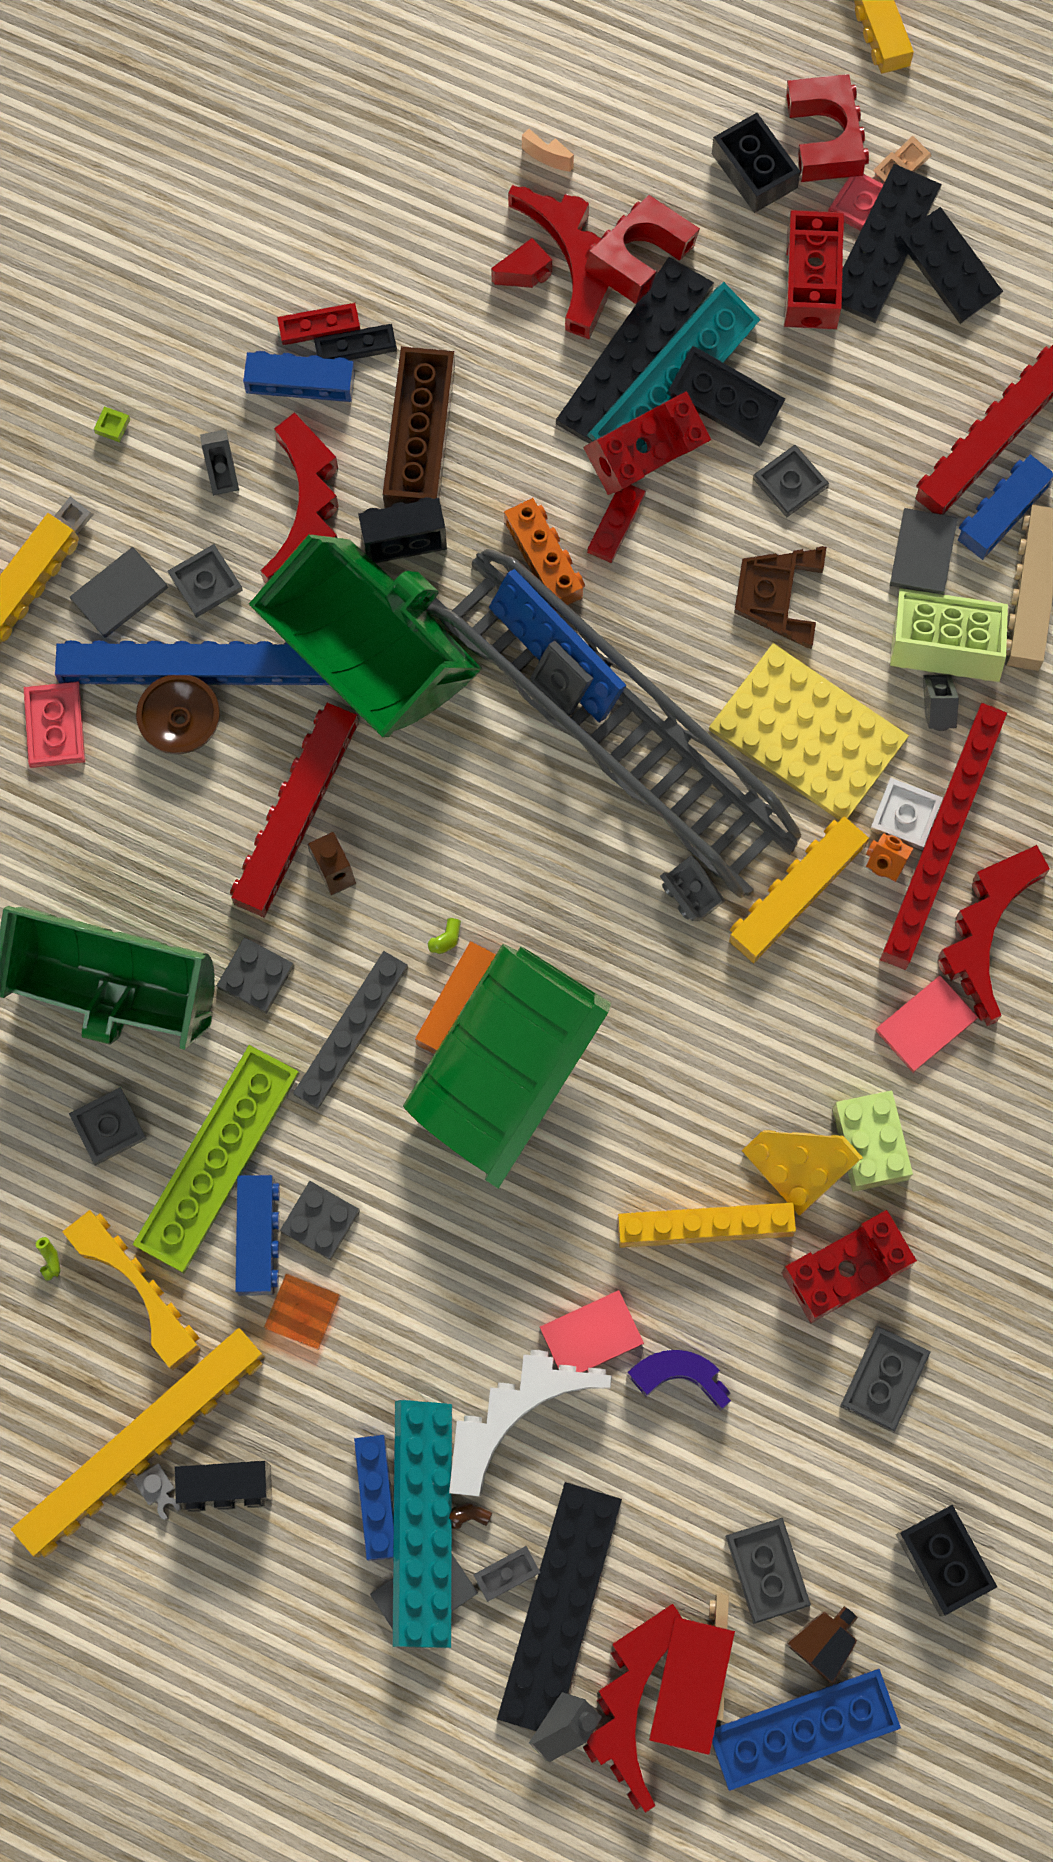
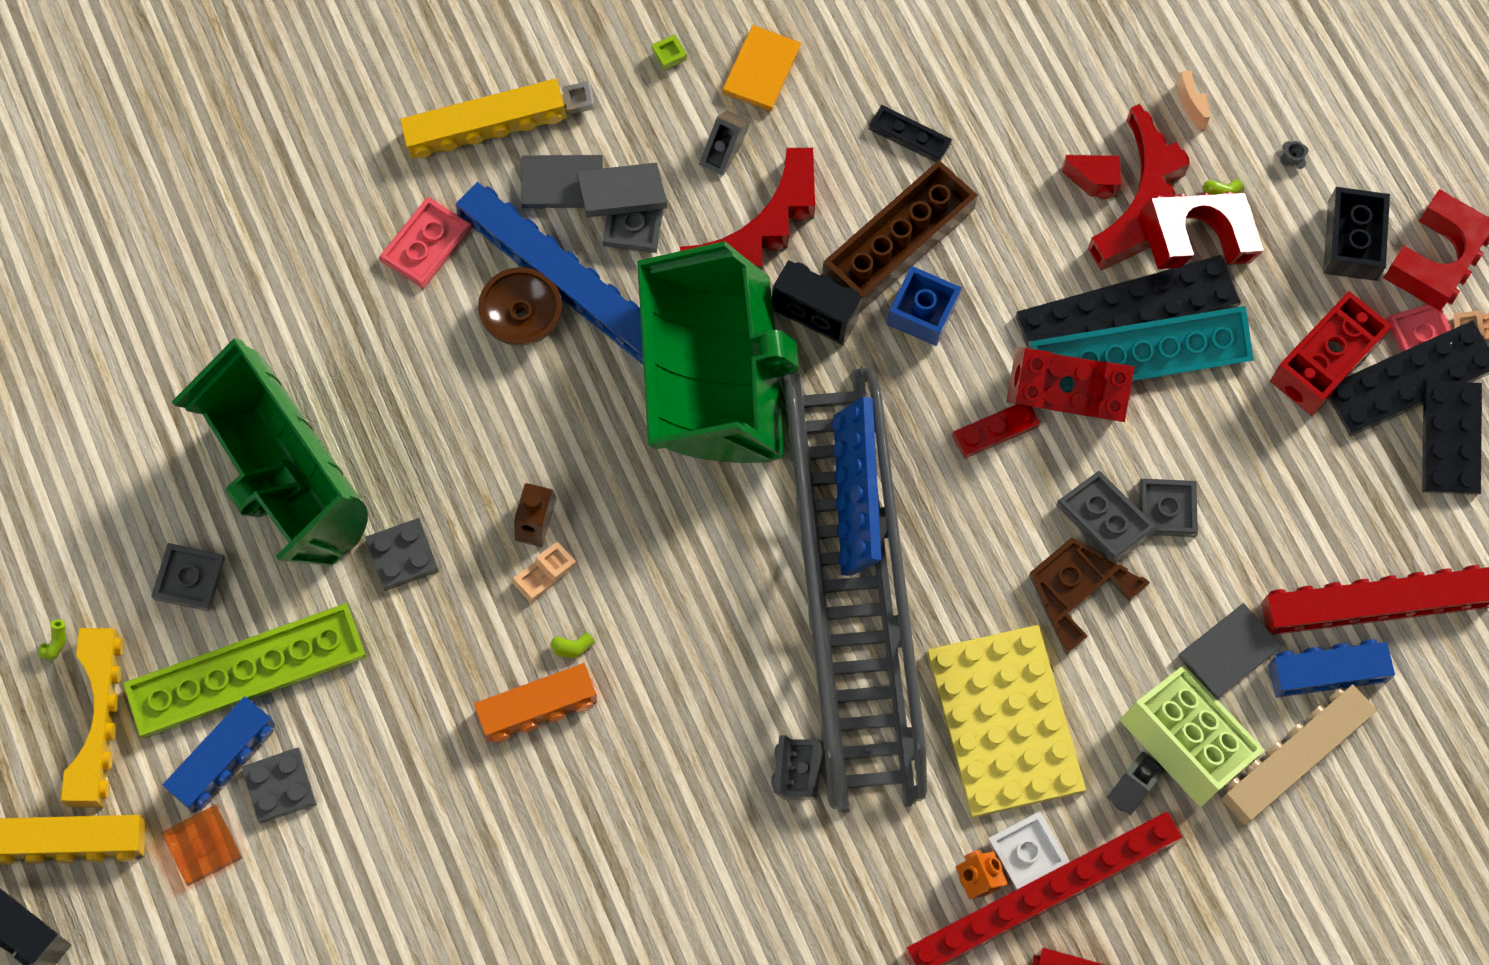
camera: 35 degrees right, 5 degrees down
(174, 561) = (621, 190): none -> dark grey tile
(195, 381) = (761, 68): none -> light orange tile
(294, 810) = (542, 451): red brick -> none
(299, 376) = (843, 124): blue brick -> none
(318, 323) = (894, 96): red plate -> none
(350, 1030) = (435, 656): dark grey plate -> none
(375, 900) = (544, 572): none -> light nougat slope
(485, 469) = (923, 305): none -> blue brick
(505, 1060) = (518, 776): green piece -> none
(542, 552) = (913, 408): orange brick -> none
(561, 678) = (837, 514): dark grey tile -> none
(624, 207) = (1217, 188): none -> lime arm
(653, 130) = (1294, 148): none -> dark grey plate
(727, 396) = (1170, 398): black plate -> none
(754, 522) = (1106, 516): none -> dark grey tile
(798, 889) = (884, 839): yellow brick -> none

